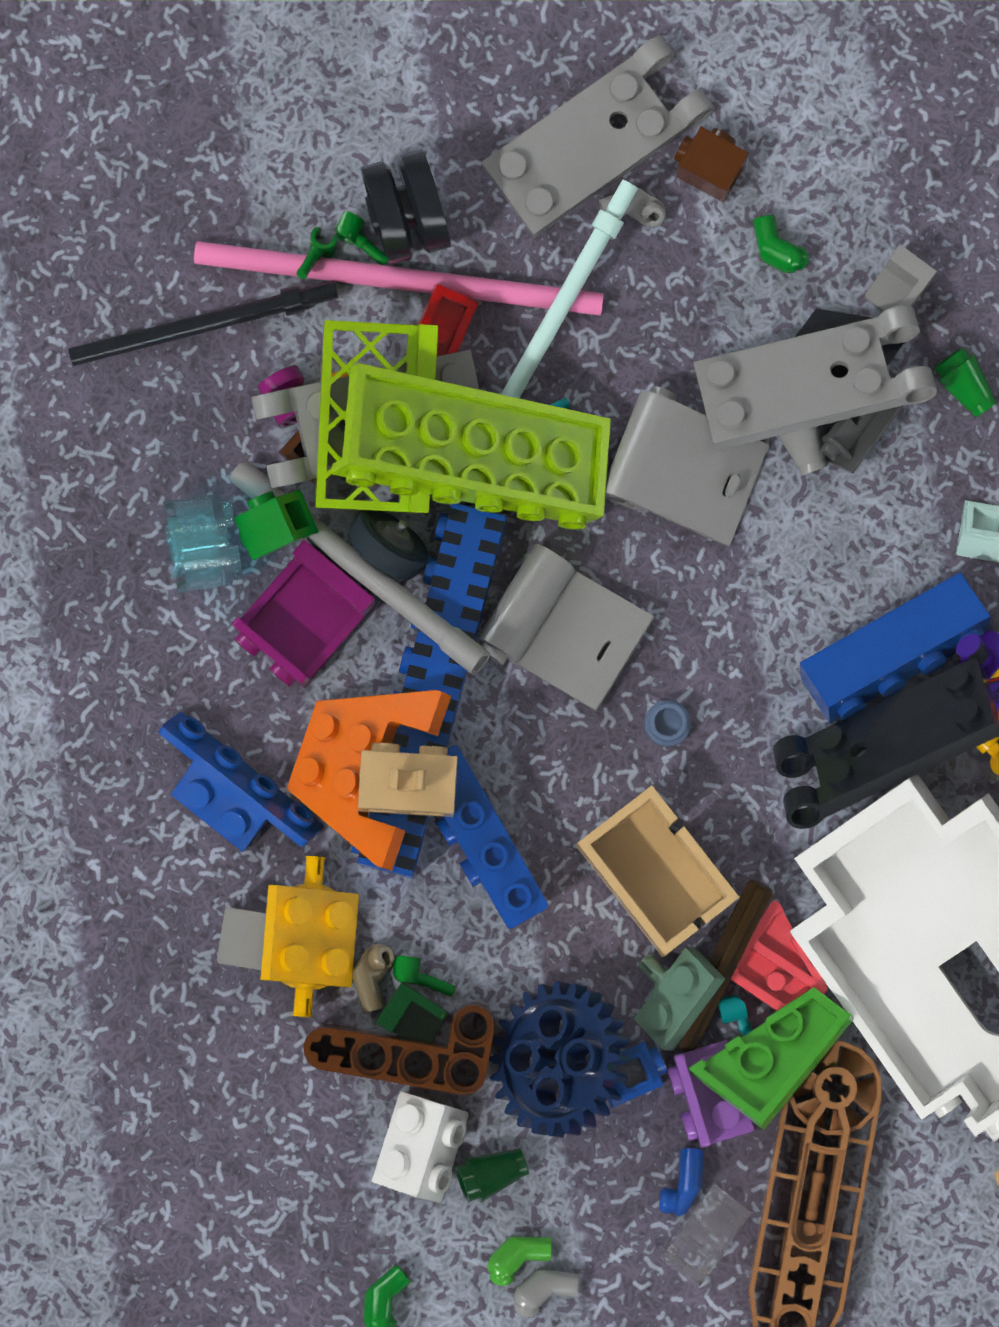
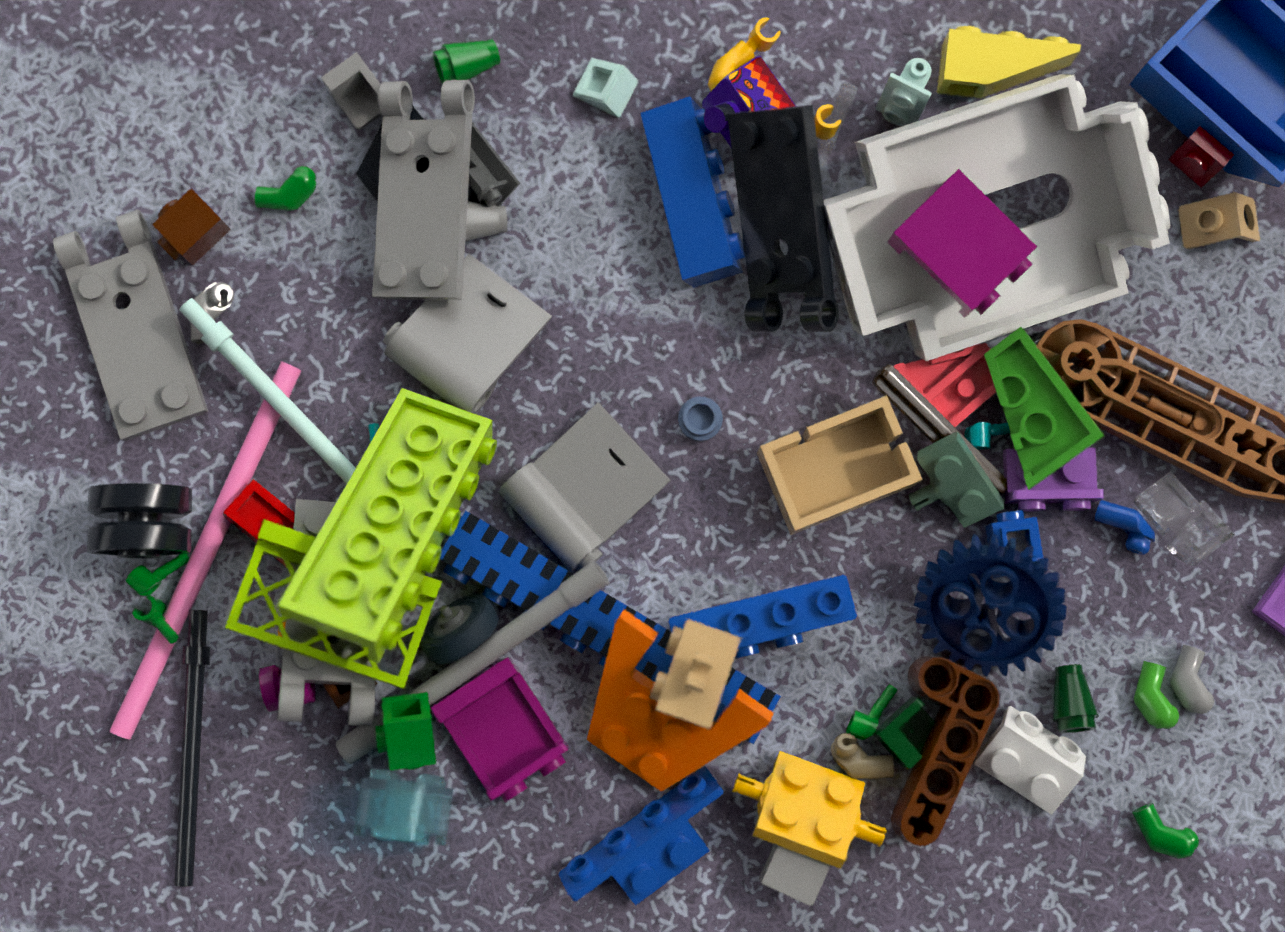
camera: 75 degrees left, 0 degrees up
(913, 930) = (964, 243): none -> magenta panel

